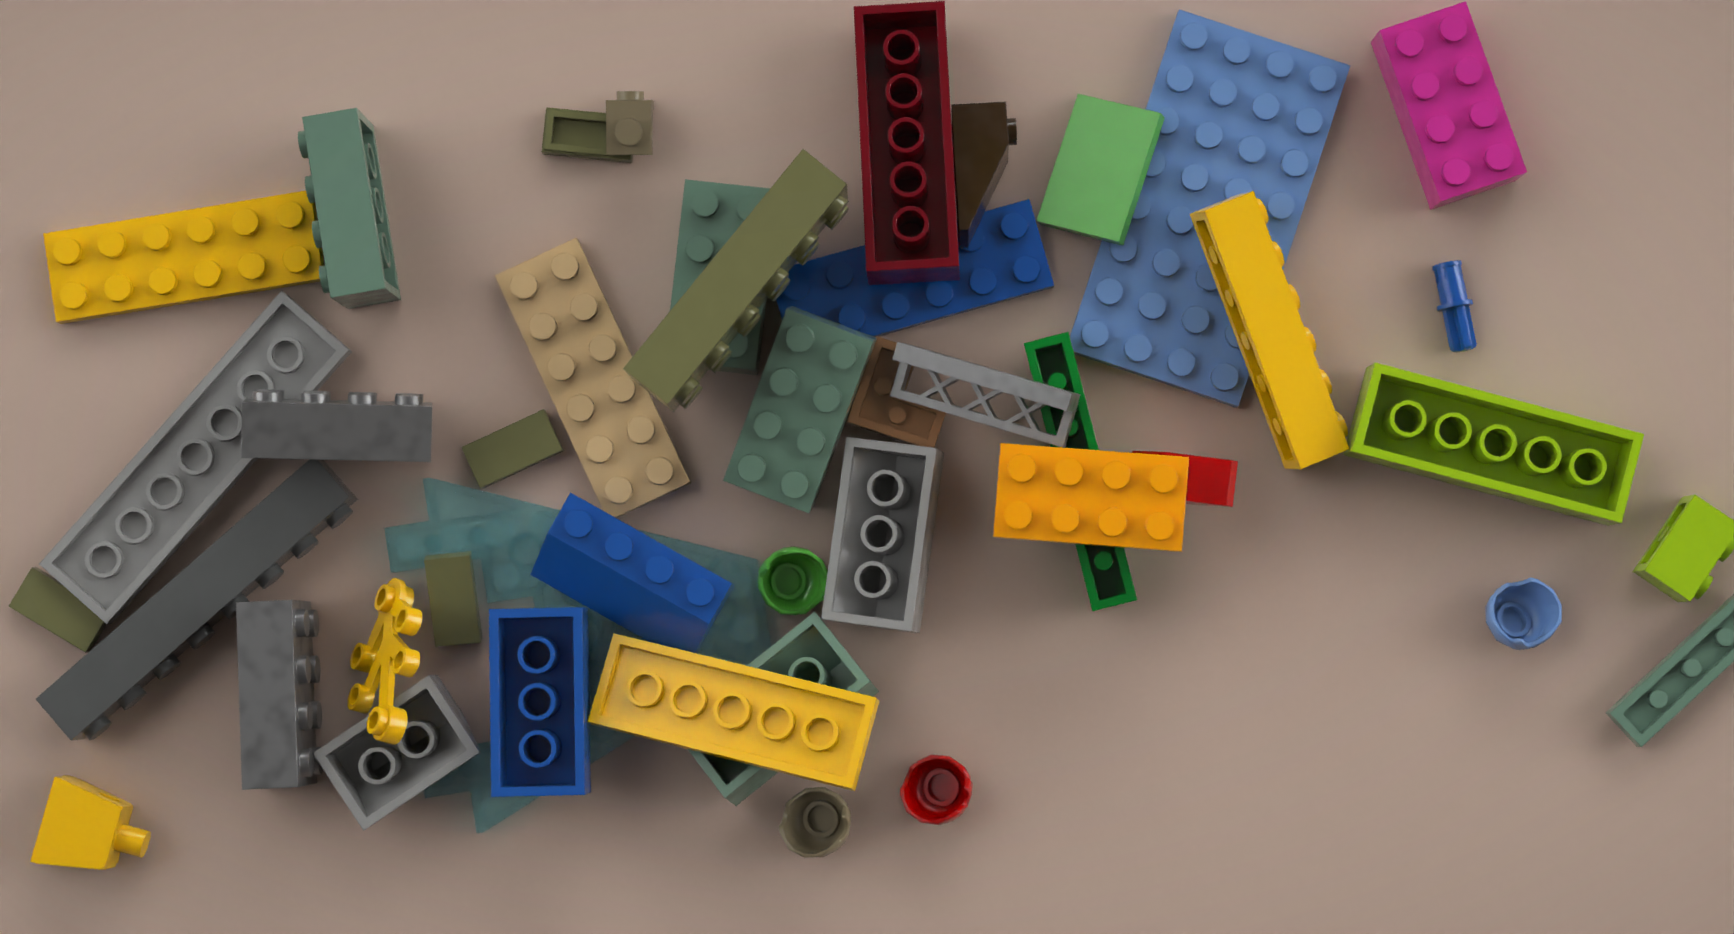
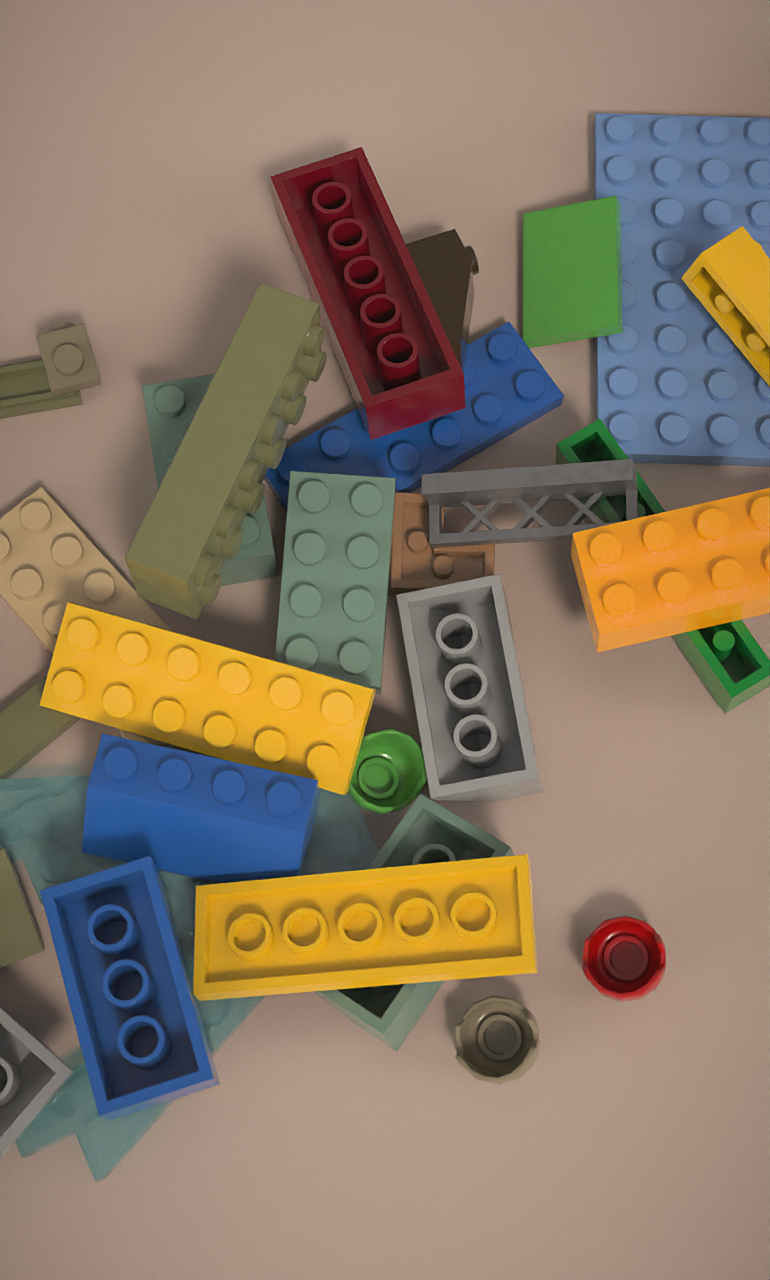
camera: 25 degrees left, 15 degrees down
(664, 479) = (207, 697): none -> yellow plate

